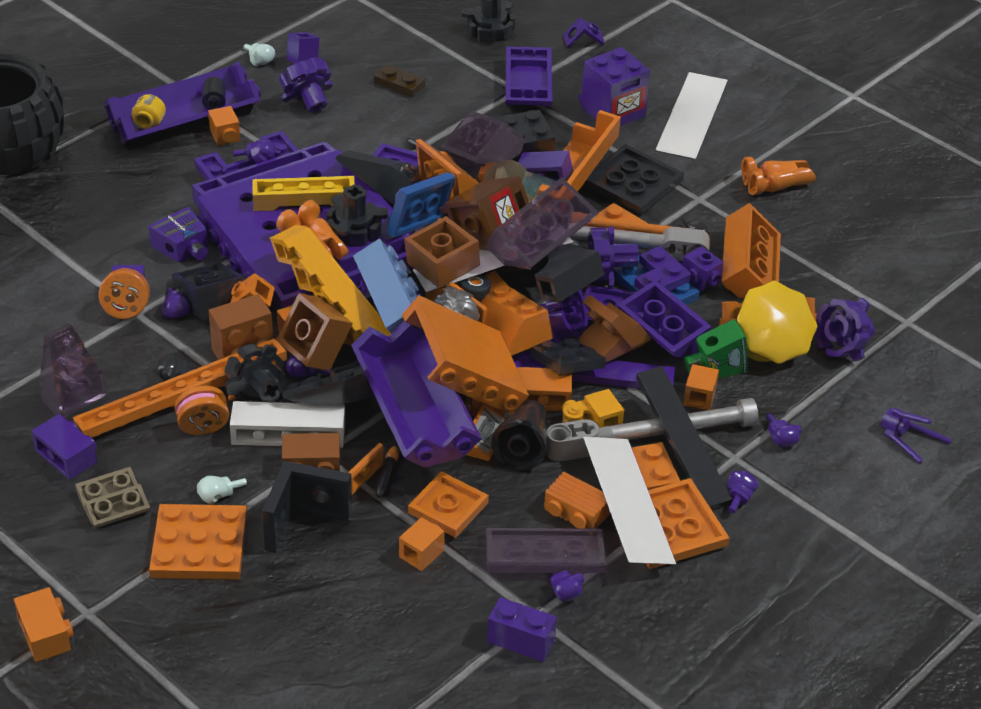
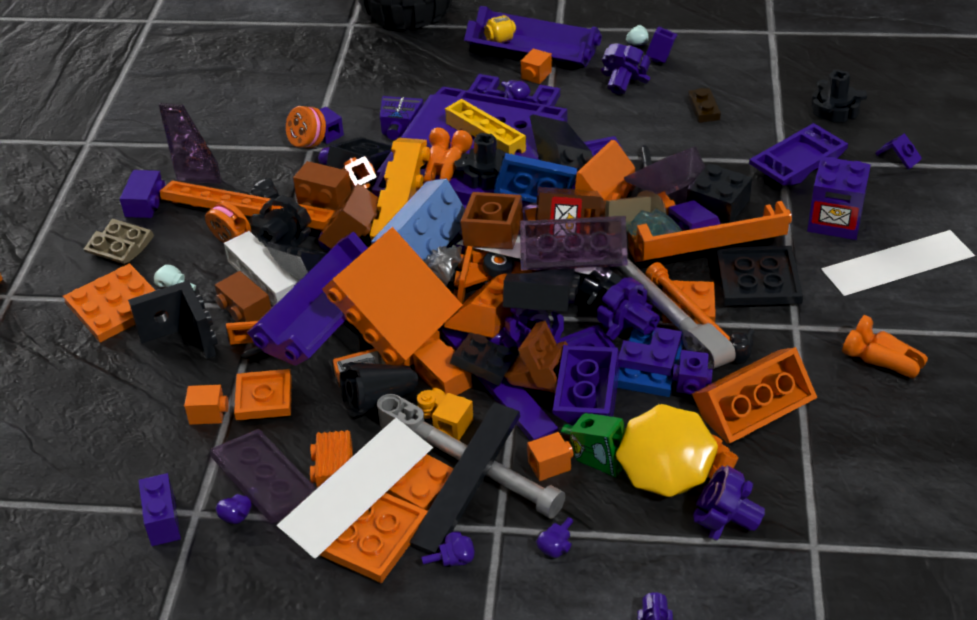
camera: 55 degrees right, 0 degrees up
(213, 93) = (560, 41): black brick -> none

